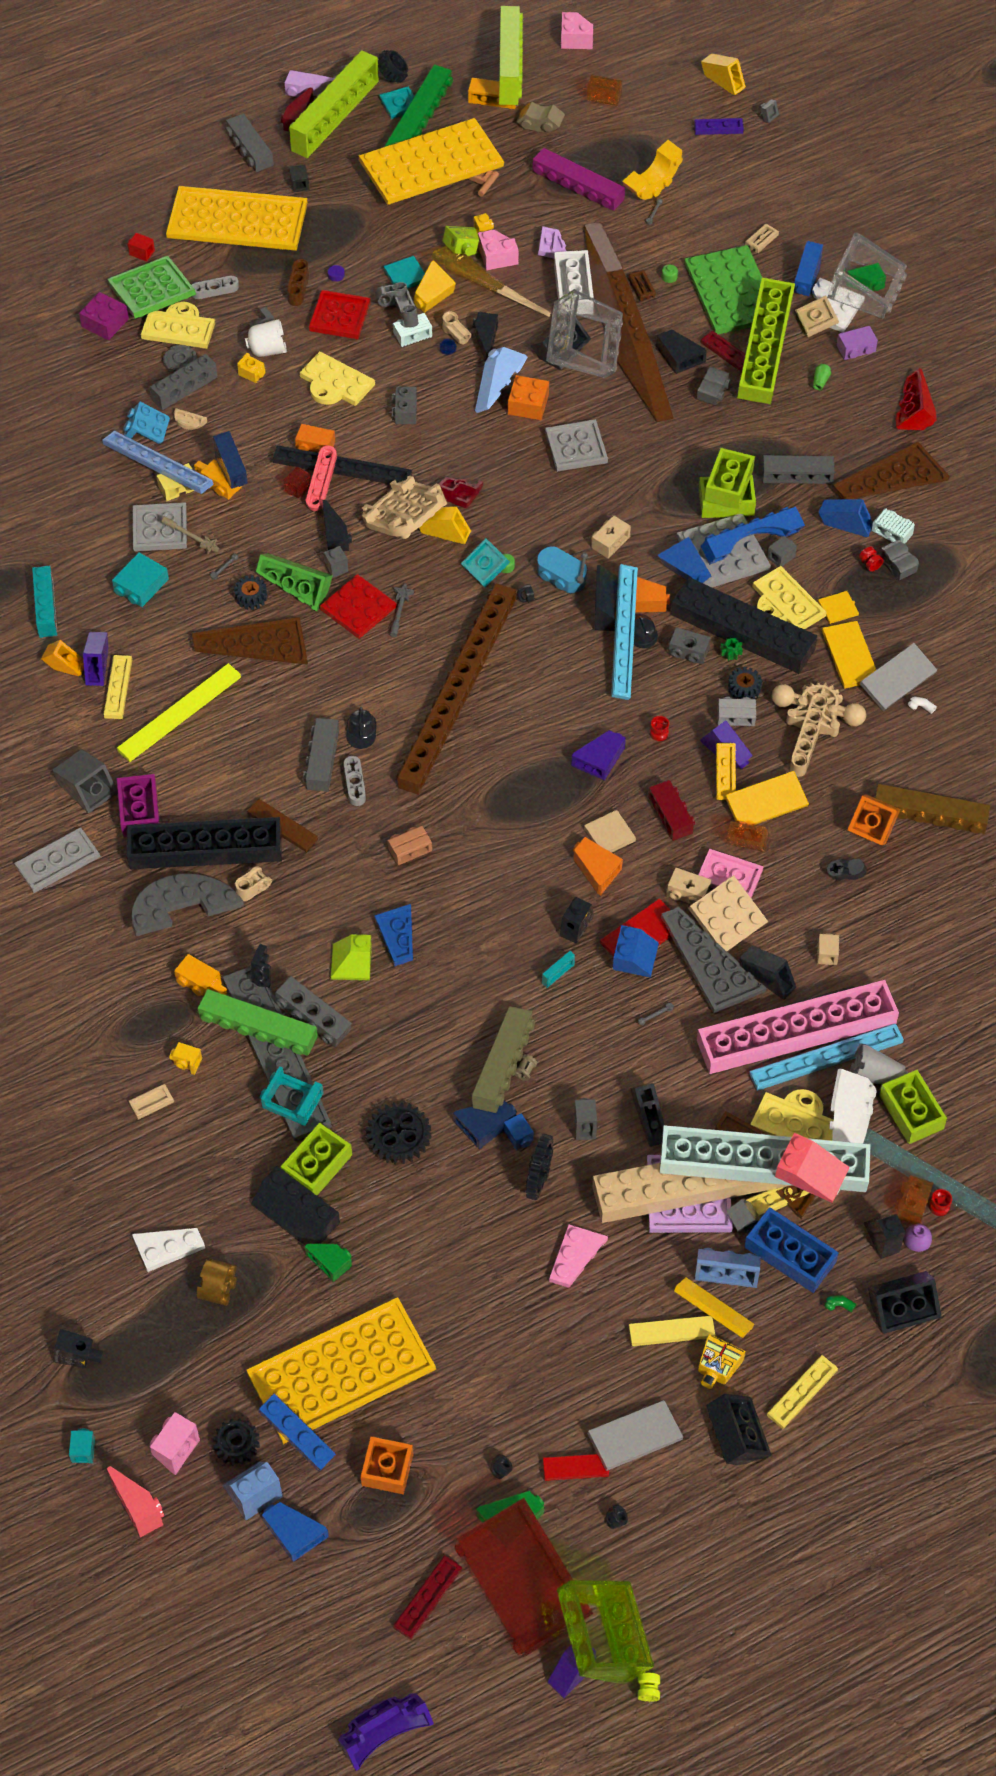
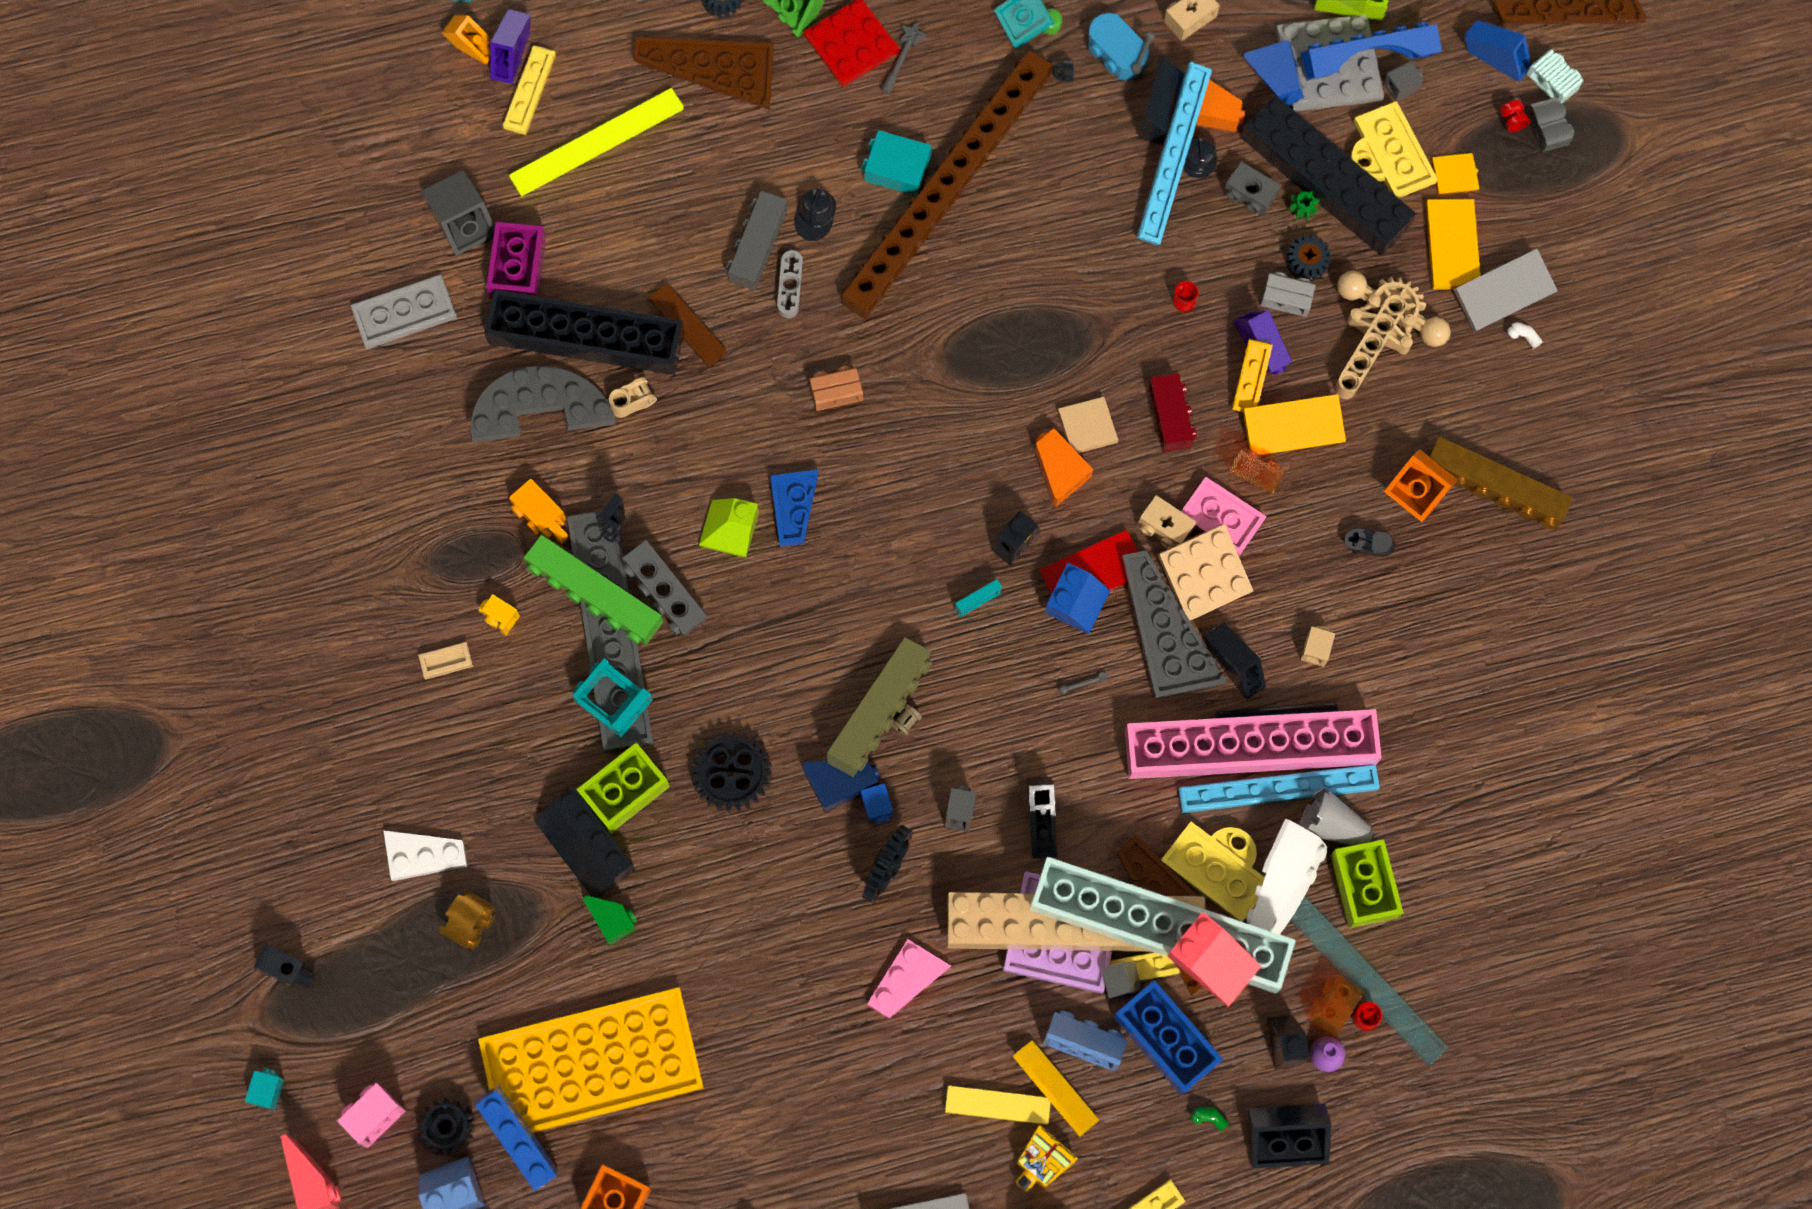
camera: 10 degrees right, 15 degrees up
(415, 680) = (897, 162): none -> teal brick
(600, 754) = (1102, 316): dark purple slope -> none

